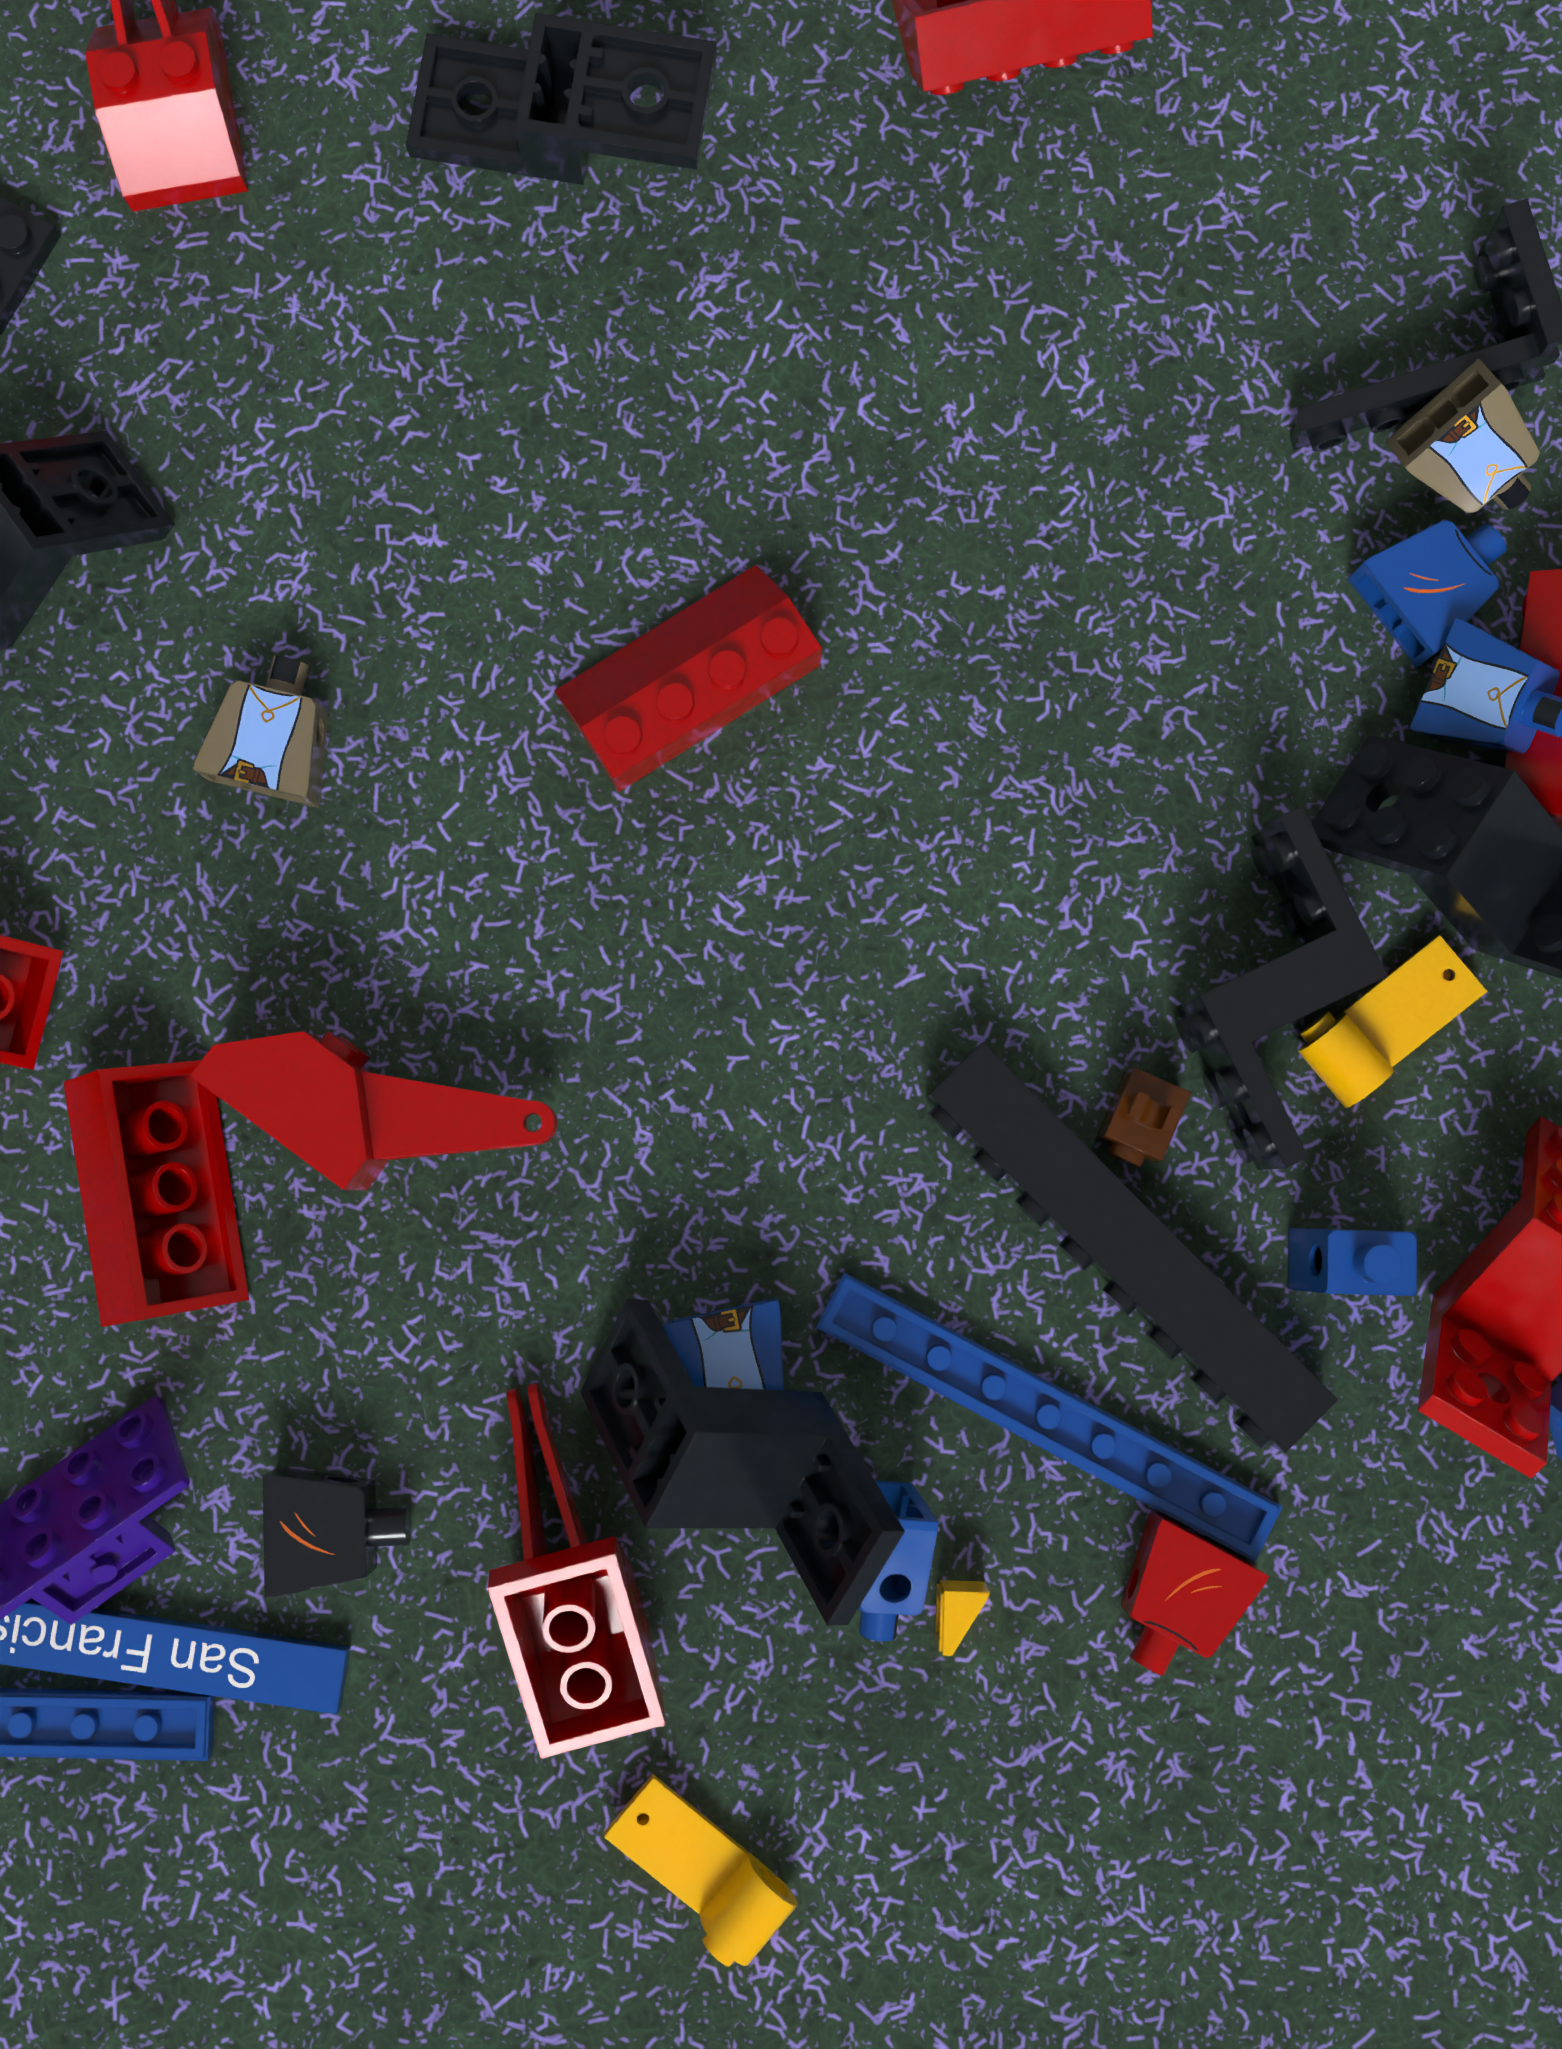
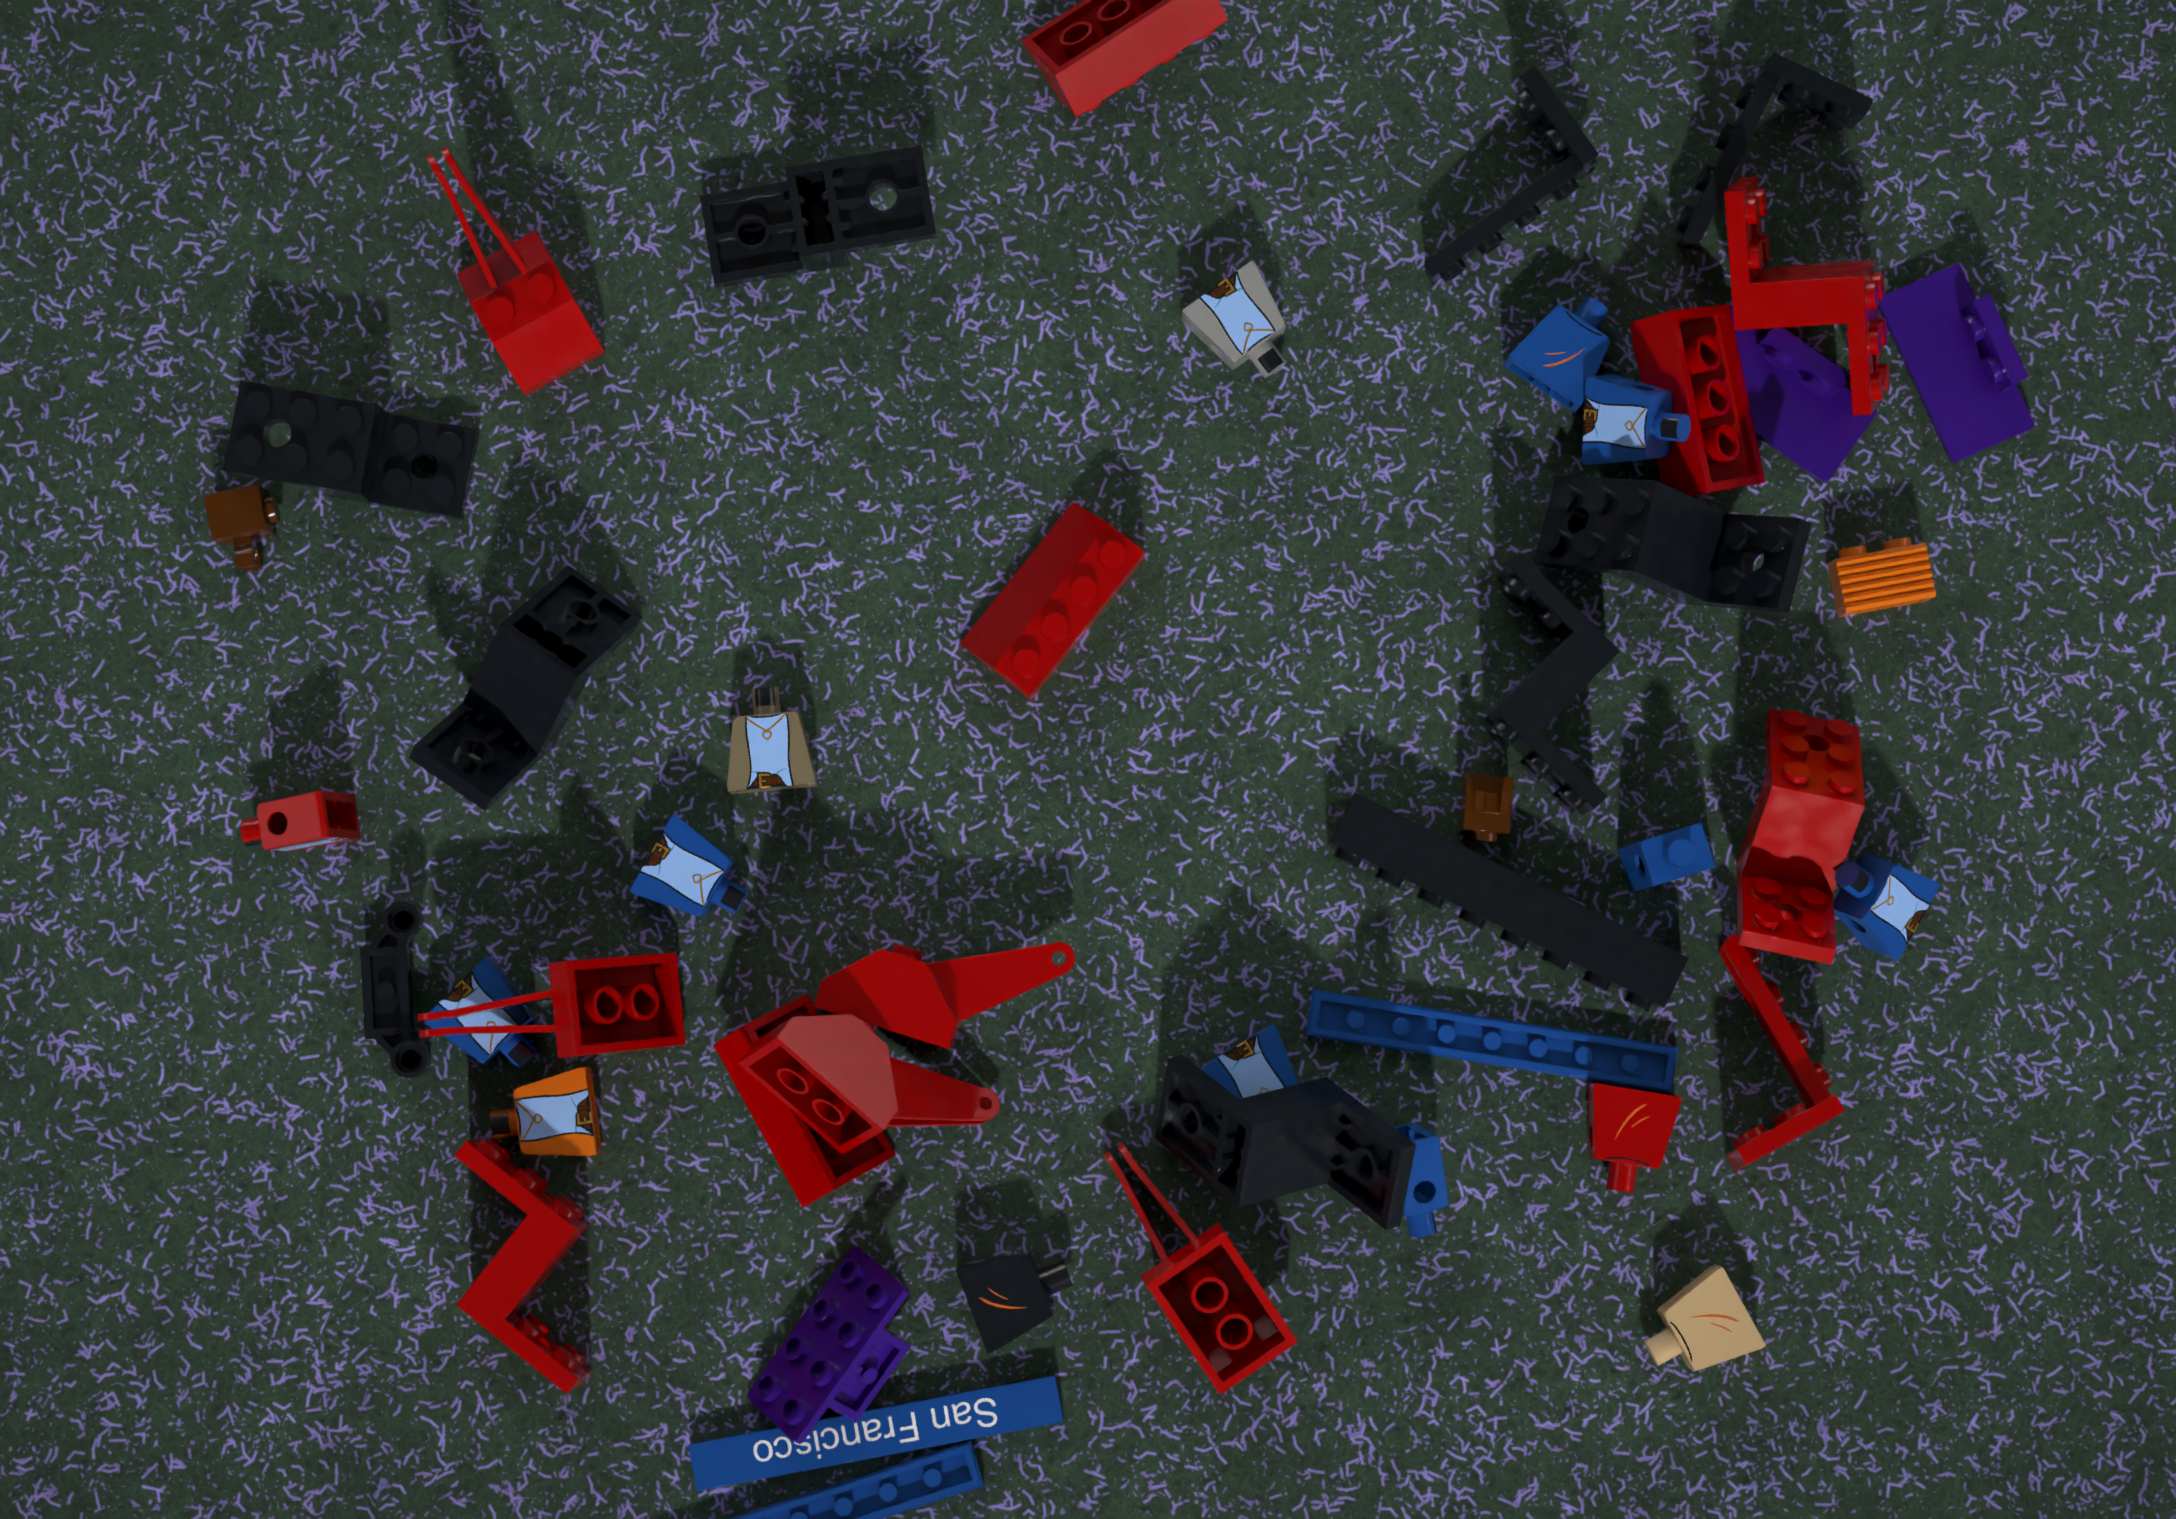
camera: 15 degrees left, 0 degrees up
(112, 855) = (688, 873): none -> torso
(201, 1195) = (850, 1088): none -> red slope
(705, 1868) = (1357, 1440): yellow door -> none
(956, 1610) = (1472, 1199): yellow slope -> none
(1039, 408) = (1239, 321): none -> torso
(1199, 1877) = (1705, 1324): none -> tan torso
(1389, 1022) = (1638, 678): yellow door -> none
(1429, 1552) = (1789, 1045): none -> red bracket
(1469, 443) = (1554, 247): dark tan torso -> none

